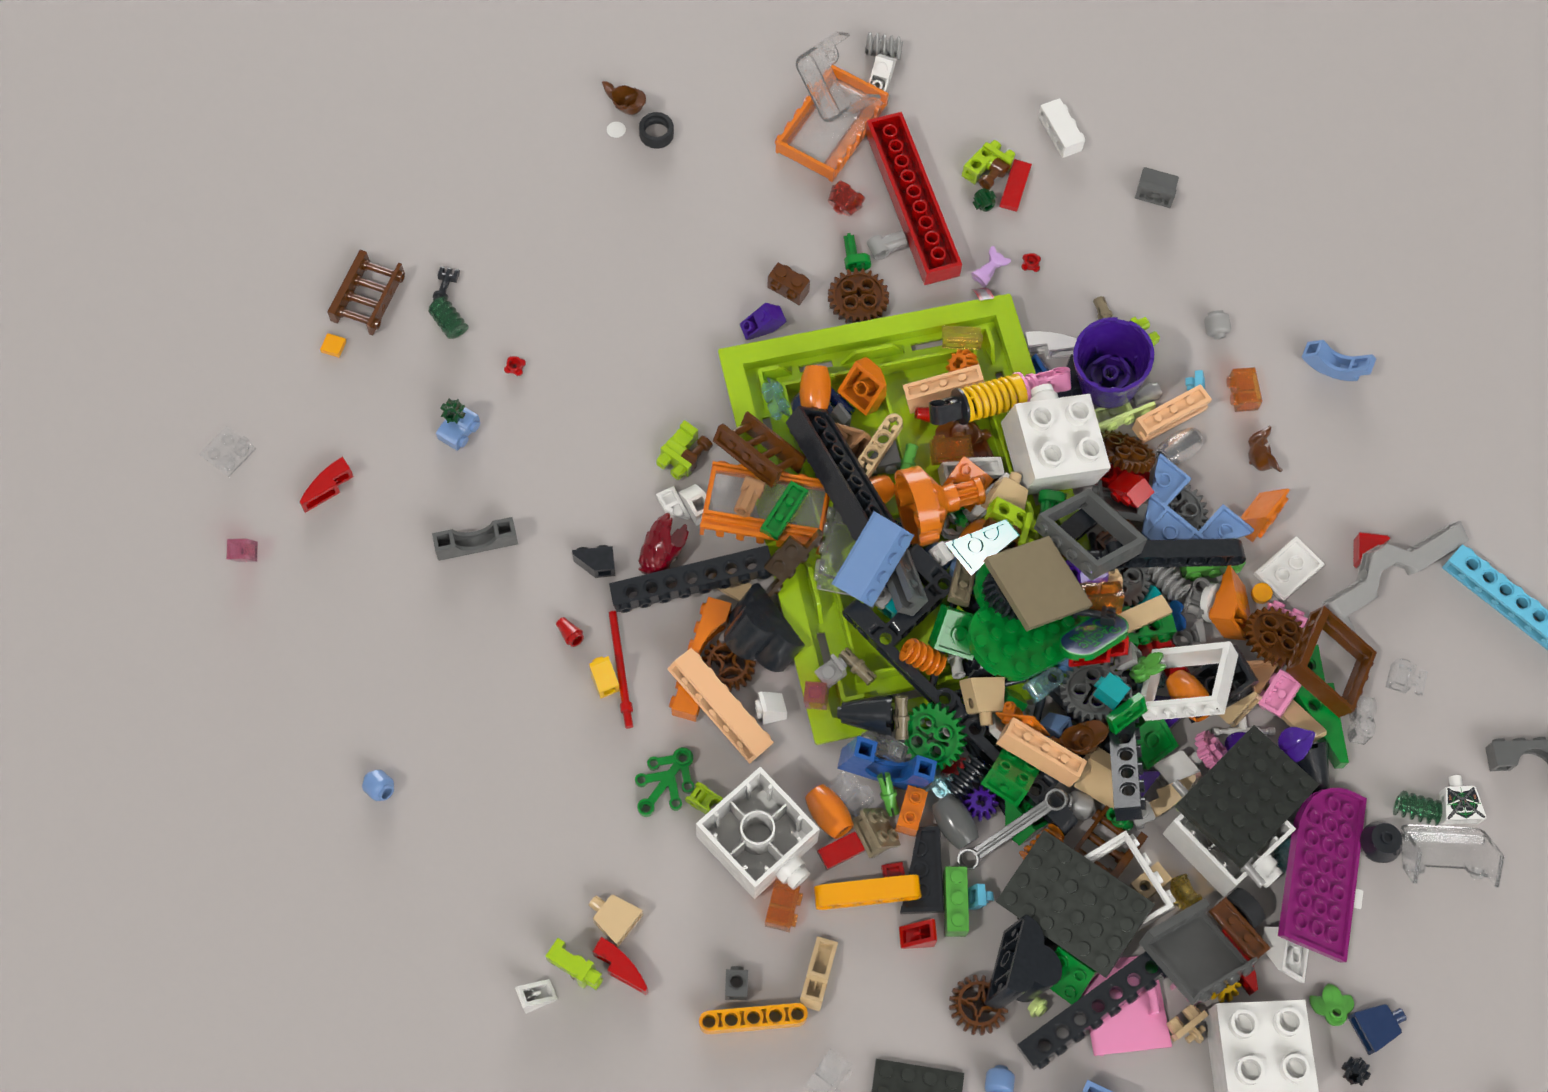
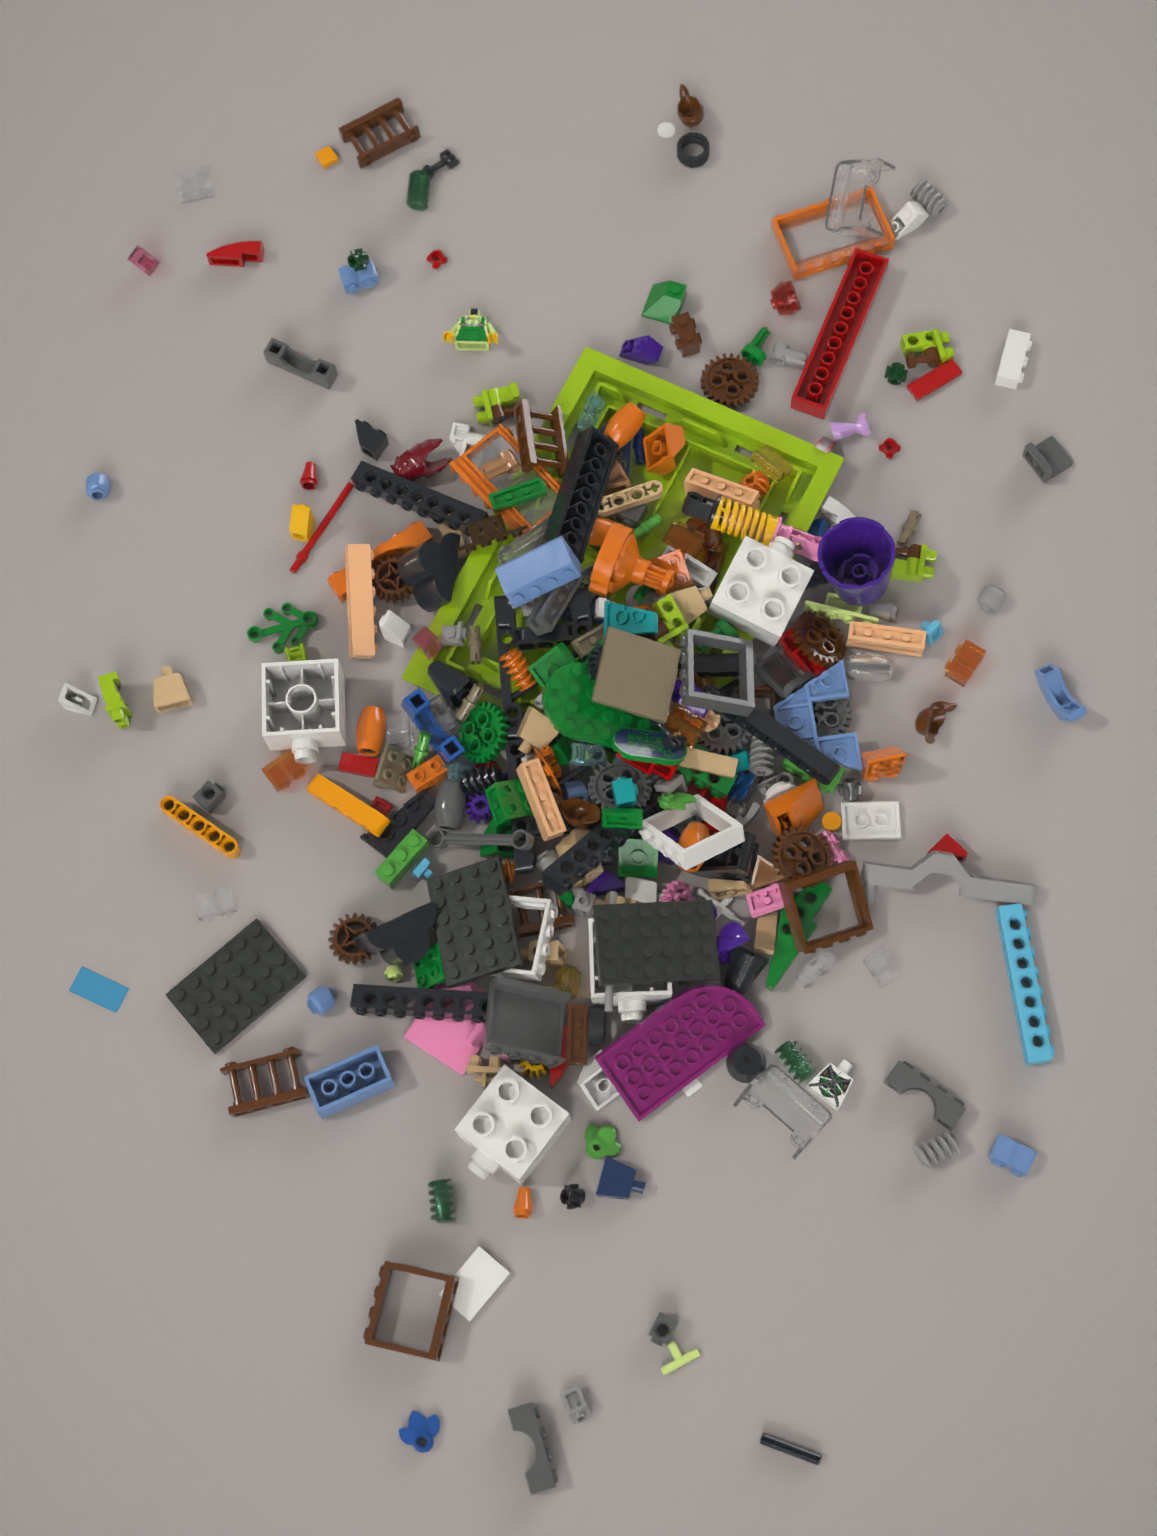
camera: 50 degrees right, 5 degrees up
(607, 405) = (472, 333): none -> torso
(620, 965) = (147, 724): red slope -> none
(745, 268) = (665, 301): none -> green slope
(818, 973) = (268, 832): tan slope -> none
(841, 415) = (626, 459): dark grey slope -> none
(918, 934) = (358, 862): red slope -> none
(1130, 489) = (791, 668): red brick -> none
(1255, 554) = (850, 789): none -> dark grey gear

